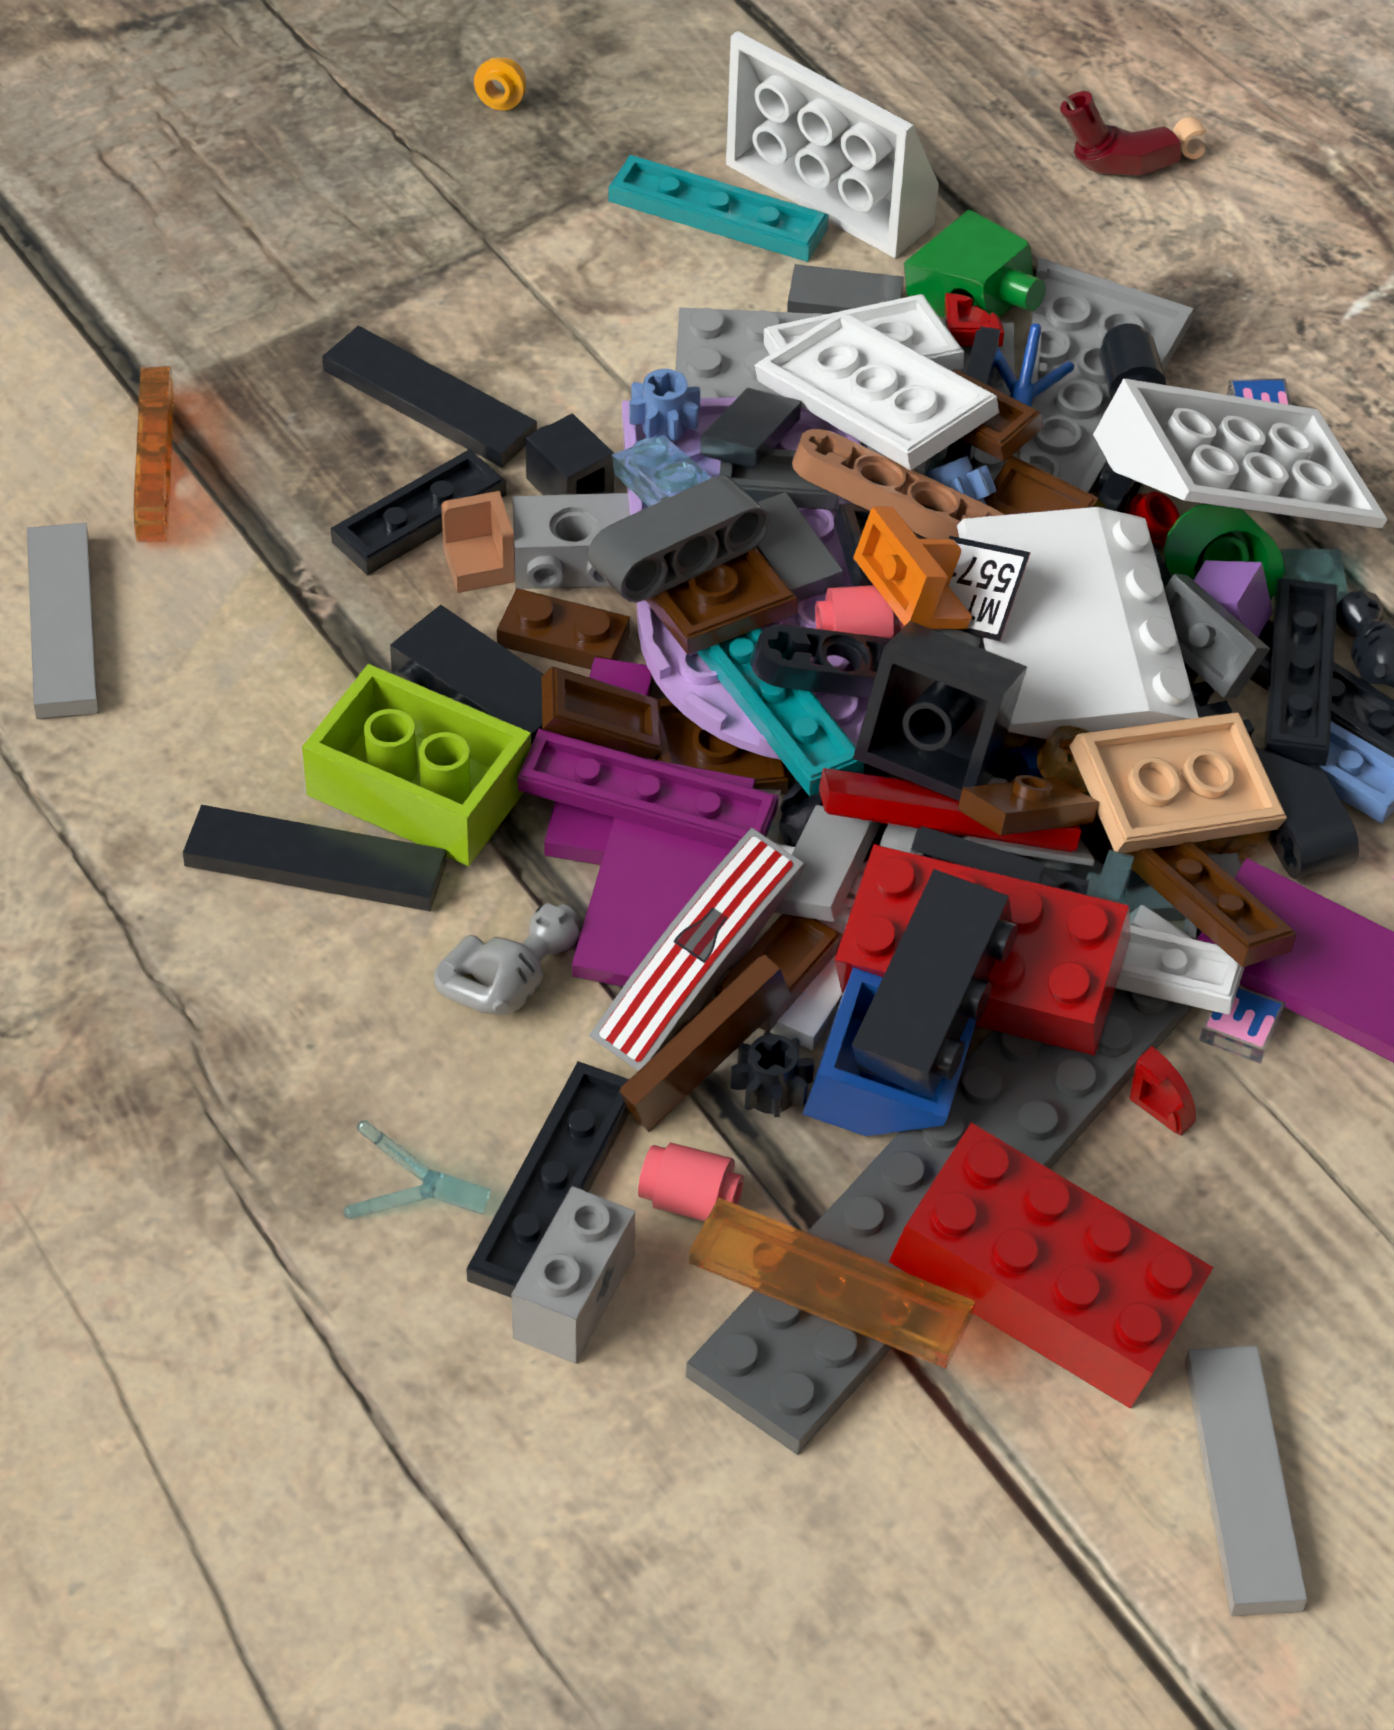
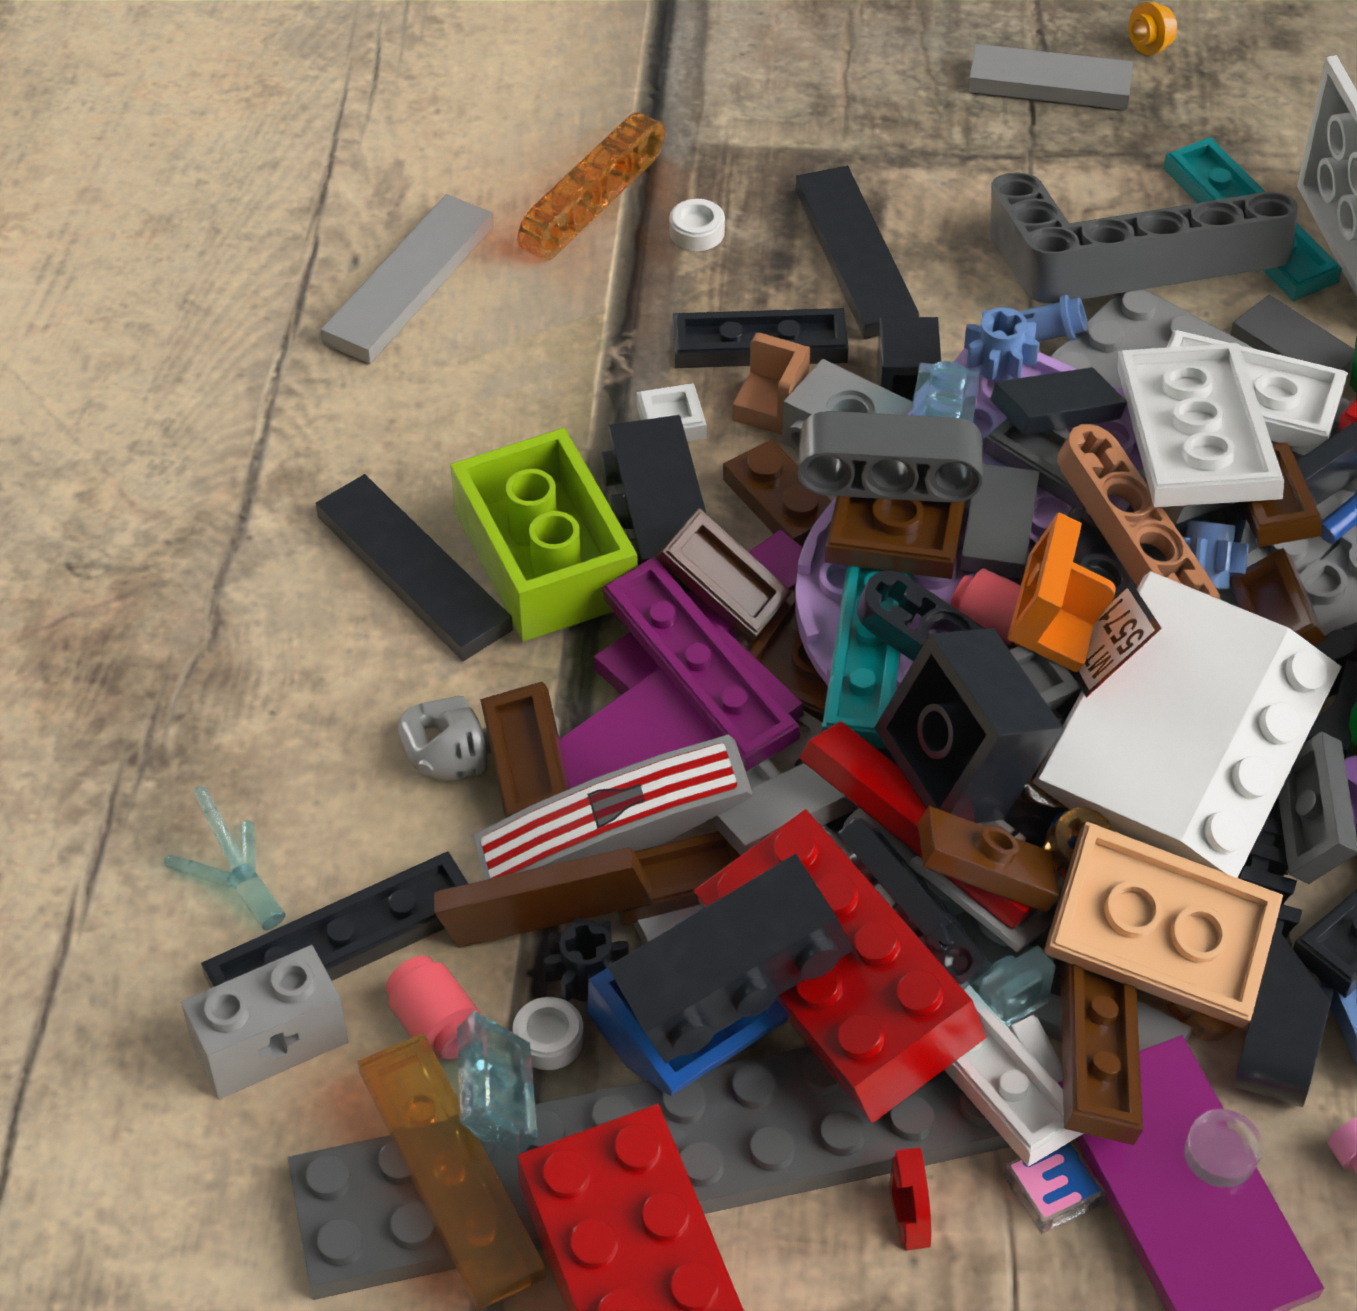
camera: 40 degrees right, 0 degrees up
(271, 442) = (697, 224): none -> white tile
(401, 609) = (672, 401): none -> white tile
(450, 165) = (1051, 77): none -> light grey tile
(576, 943) = (524, 746): none -> reddish brown tile
(660, 357) = (1058, 319): none -> medium blue pin
(662, 289) = (1134, 248): none -> dark grey beam
(786, 1148) = (553, 1032): none -> white tile
(798, 1192) = (496, 1084): none -> clear light blue plate
(1343, 918) = (1223, 1148): none -> clear tile

